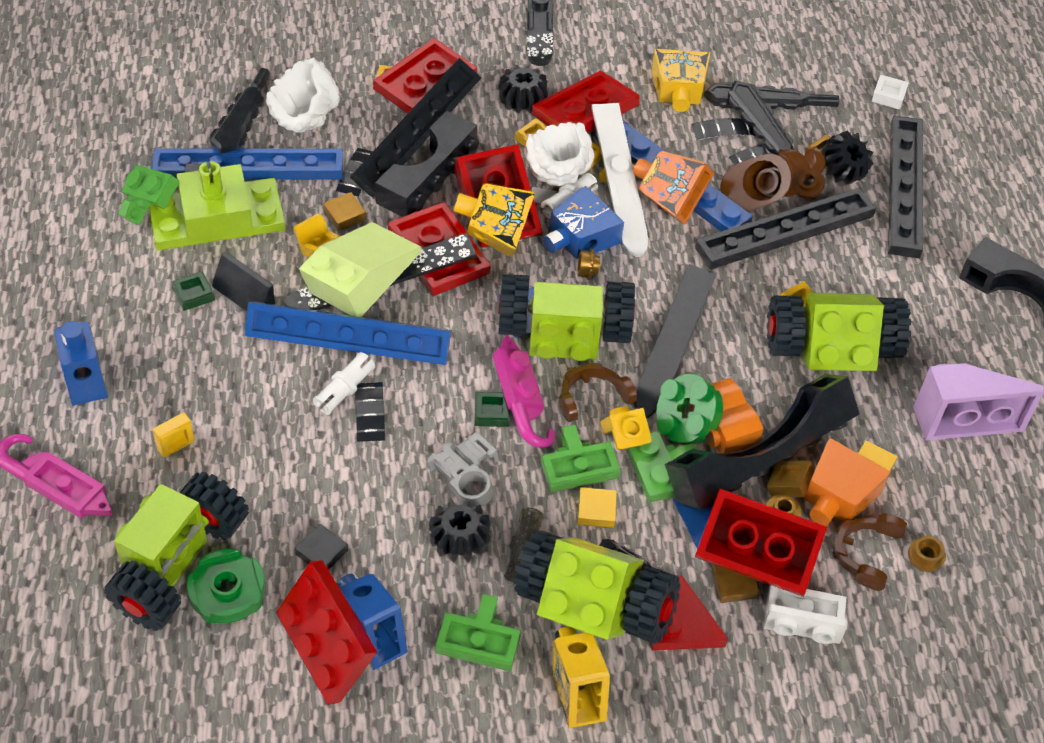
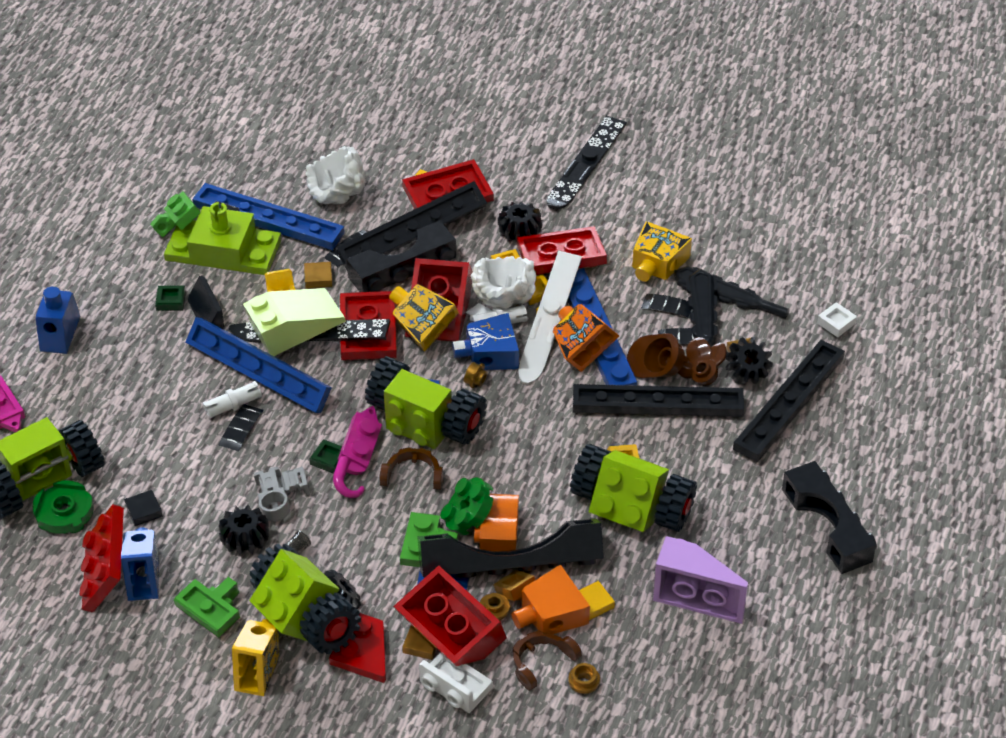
camera: 30 degrees right, 5 degrees down
(173, 435) = (90, 393): yellow tile -> none
(239, 120) = (280, 181): black sword -> none
(579, 462) = (363, 516): bright green hinge -> none
(597, 507) = (357, 552): yellow tile -> none
(627, 426) = (413, 502): yellow bracket -> none
(674, 336) = (509, 449): piece -> none

